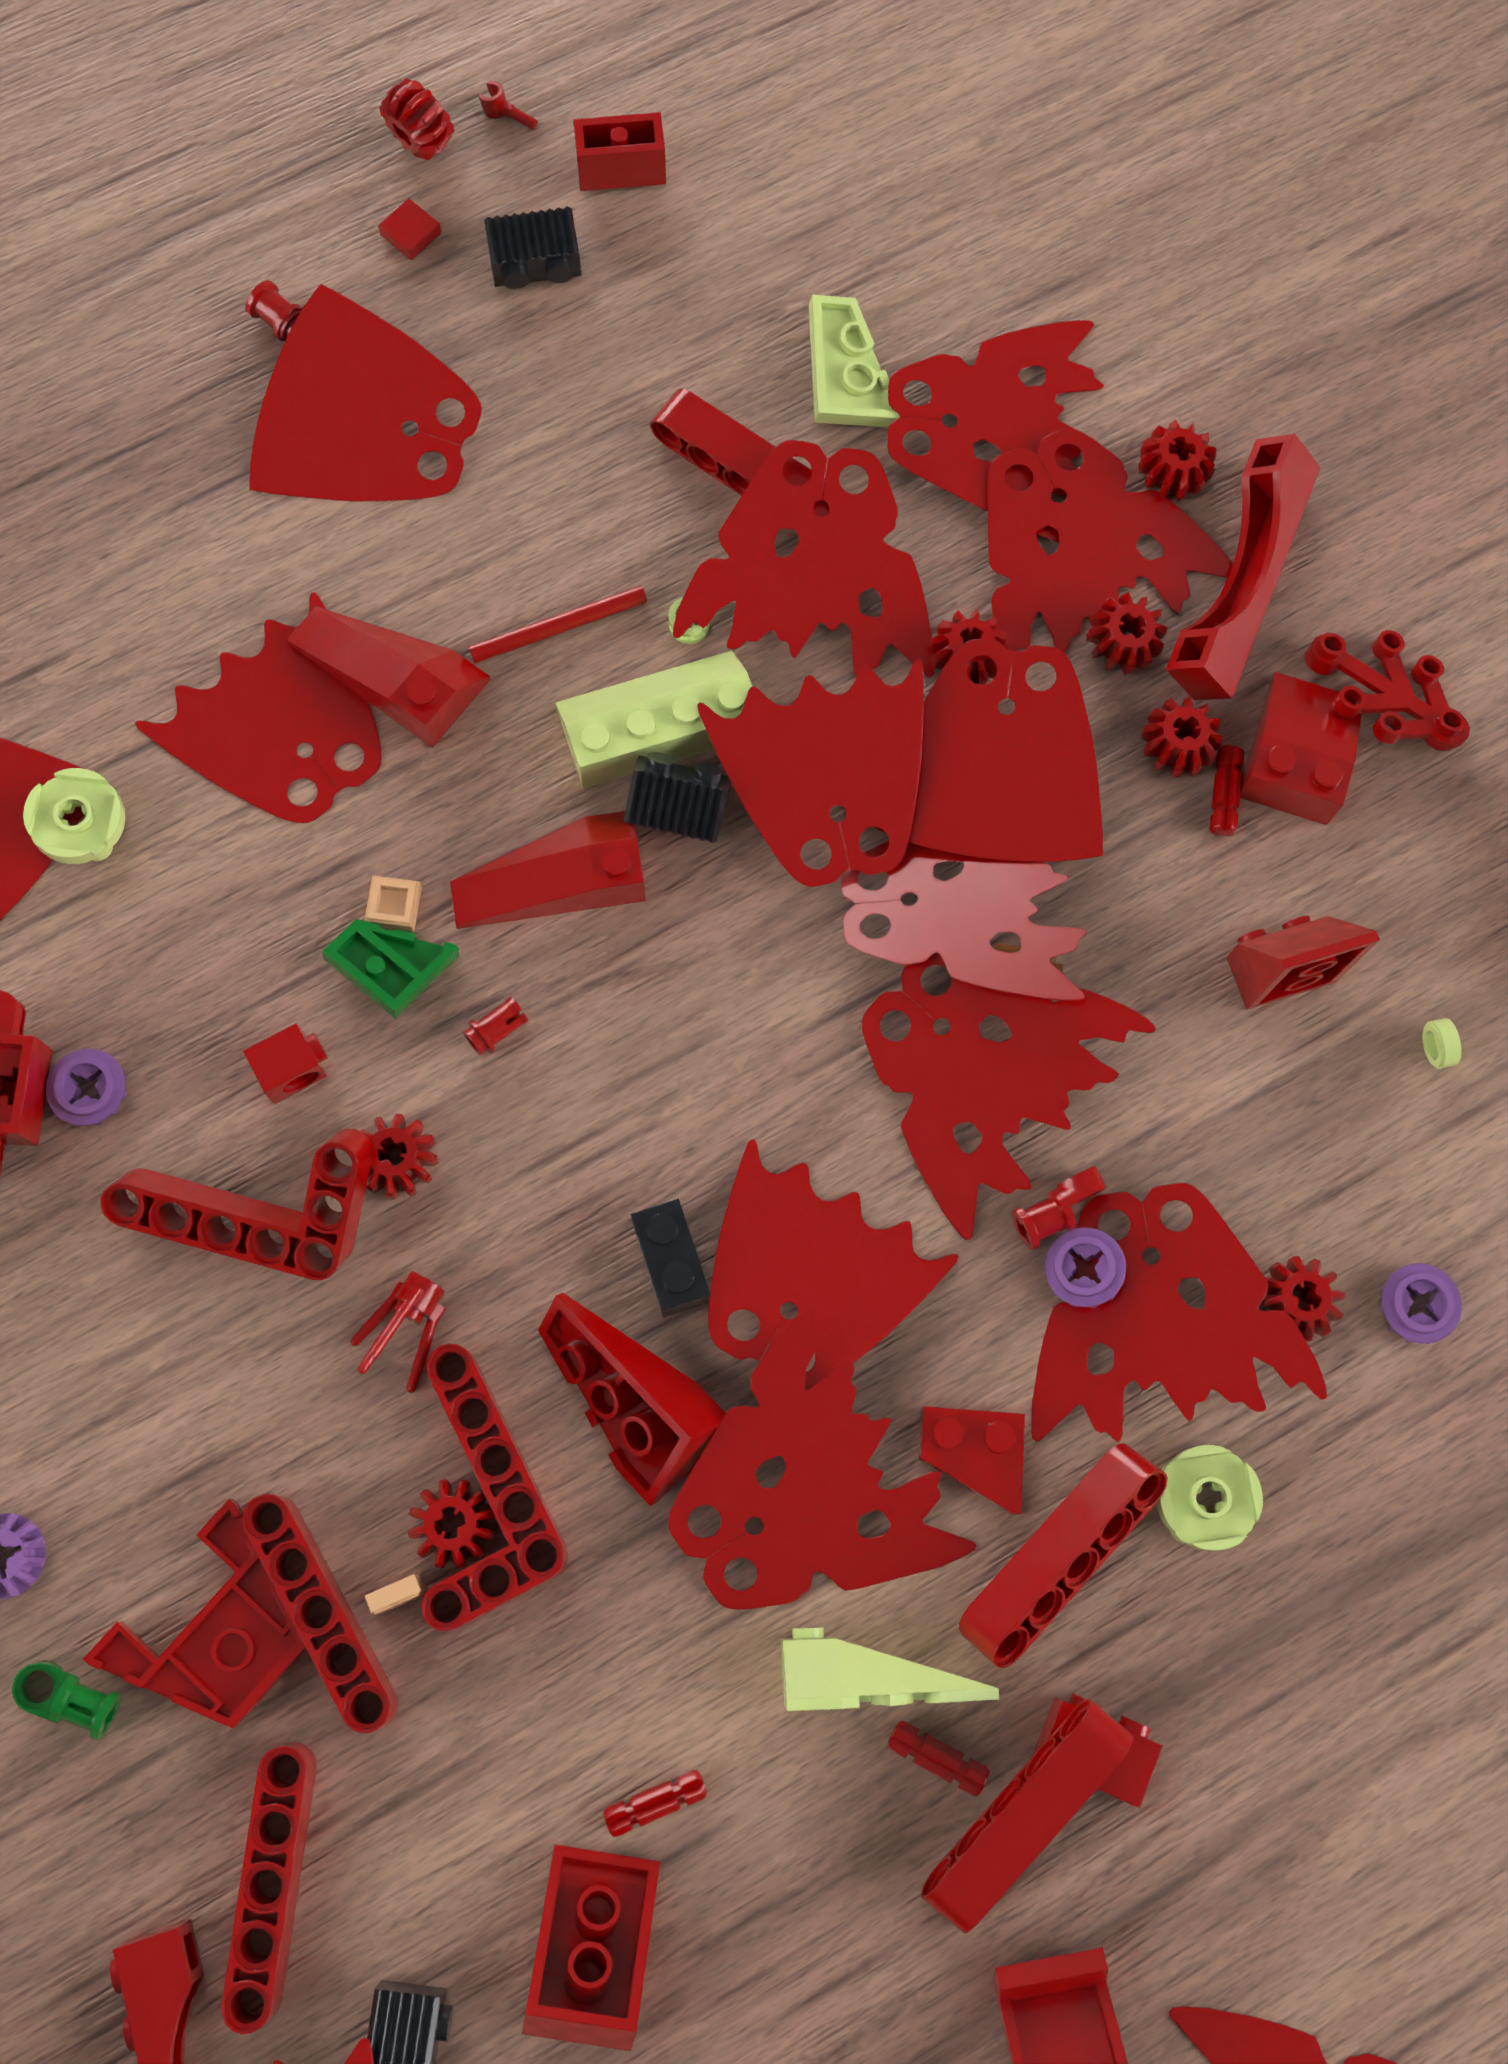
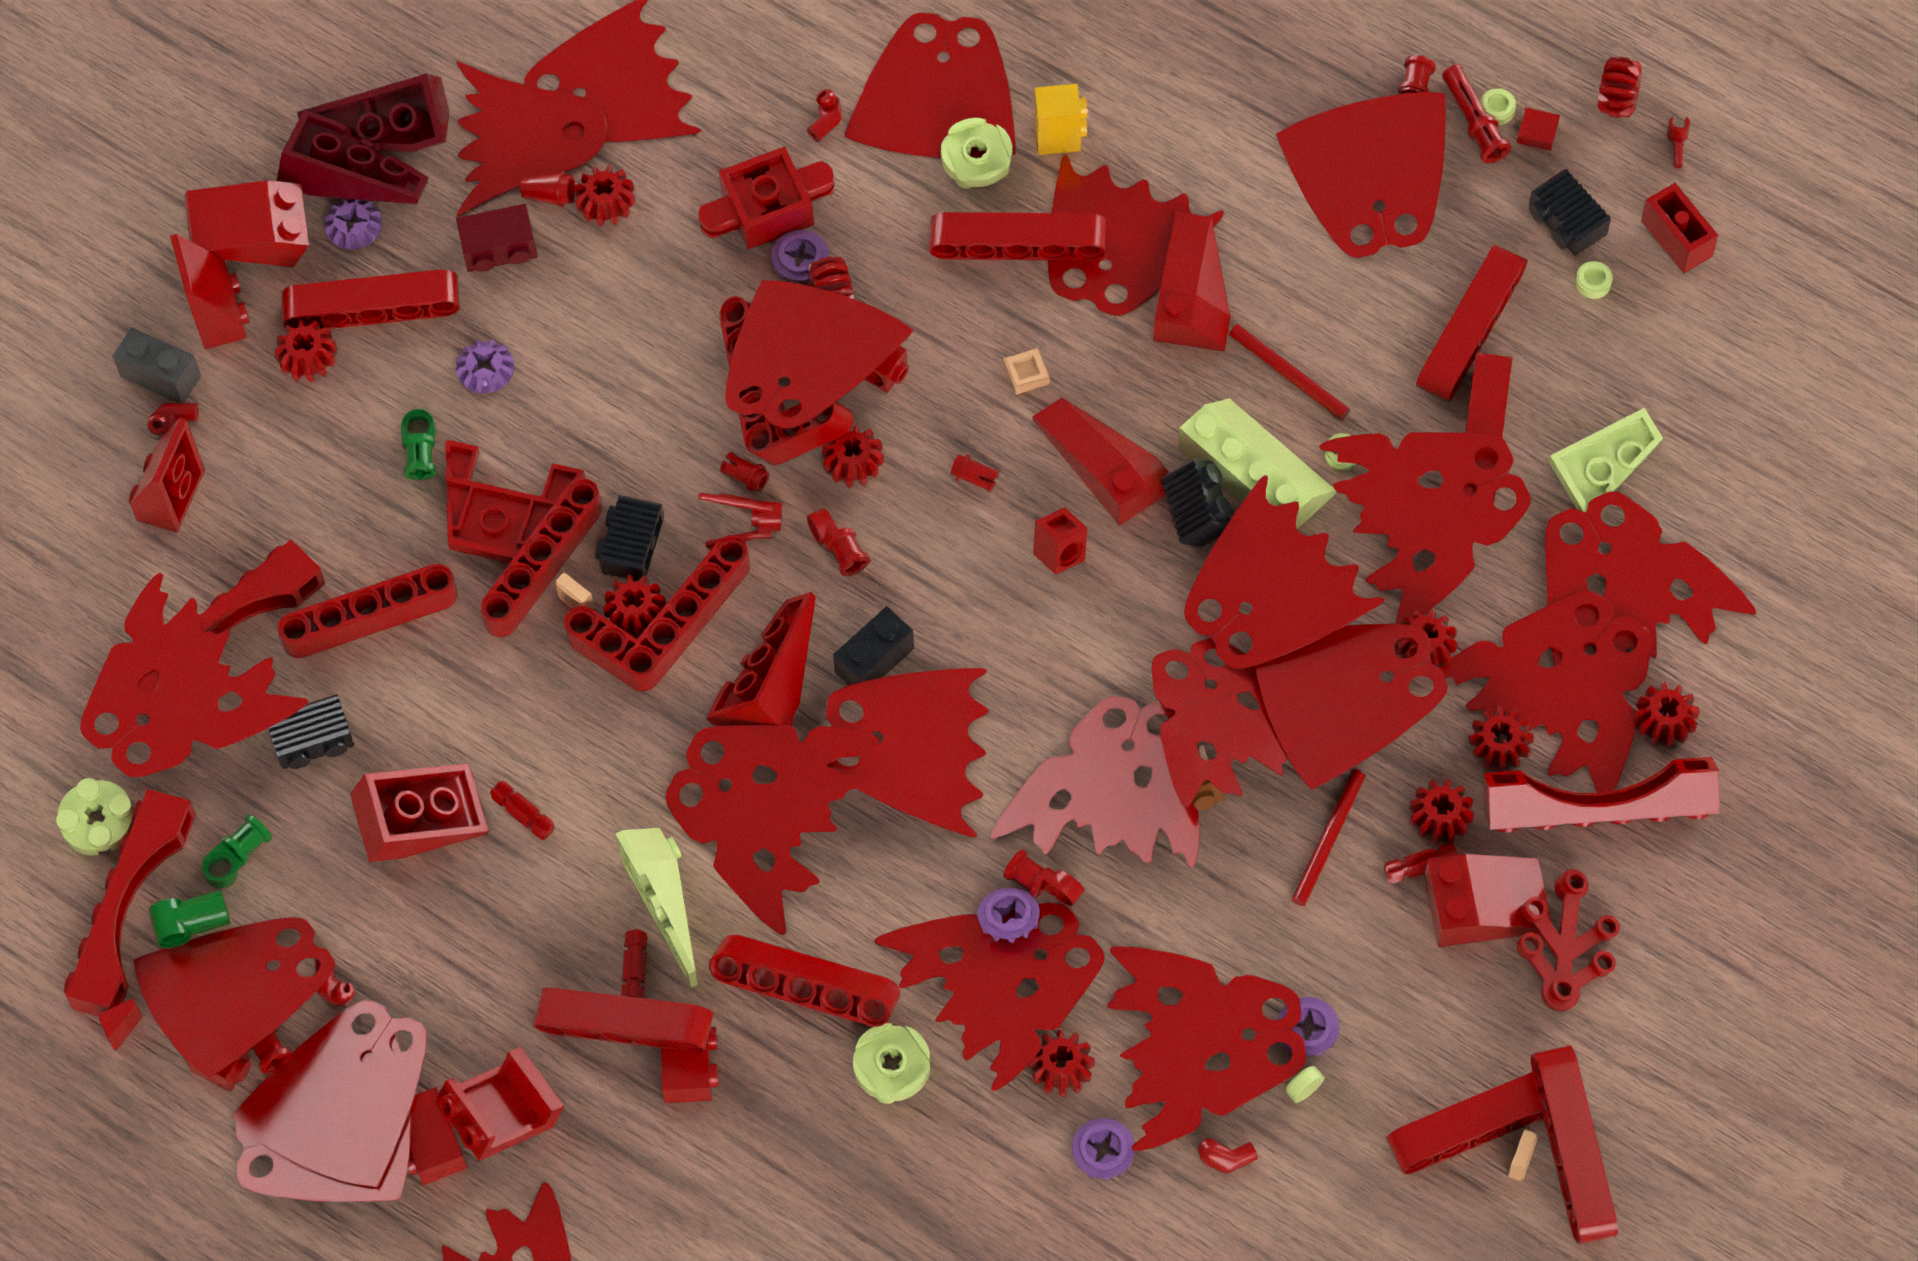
camera: 70 degrees right, 10 degrees down
(94, 698) = (1059, 119): none -> yellow brick
(156, 1070) = (831, 275): none -> red gear
(214, 826) = (1017, 236): none -> red beam
(227, 1124) = (815, 340): none -> red piece
(344, 1295) = (753, 476): none -> red pin
(355, 1484) = (630, 537): none -> black brick
(357, 254) = (1499, 104): none -> yellowish green tile
(375, 277) = (1481, 125): none -> red pin
(388, 963) = (981, 388): green wing -> none
(506, 1226) = (838, 541): none -> red connector
(610, 410) = (1471, 323): none -> red beam
(623, 270) = (1593, 279): none -> yellowish green tile
(644, 972) = (1060, 540): none -> red brick
(977, 1450) = (847, 905): red wing -> none
(1157, 879) = (1328, 837): none -> red bar
(1296, 958) = (1304, 950): red slope -> none
(1324, 1130) = (1189, 1033): none -> red piece
(1390, 1004) = (1323, 1018): none -> medium lavender gear
(1488, 1175) = (1225, 1159): none -> red arm

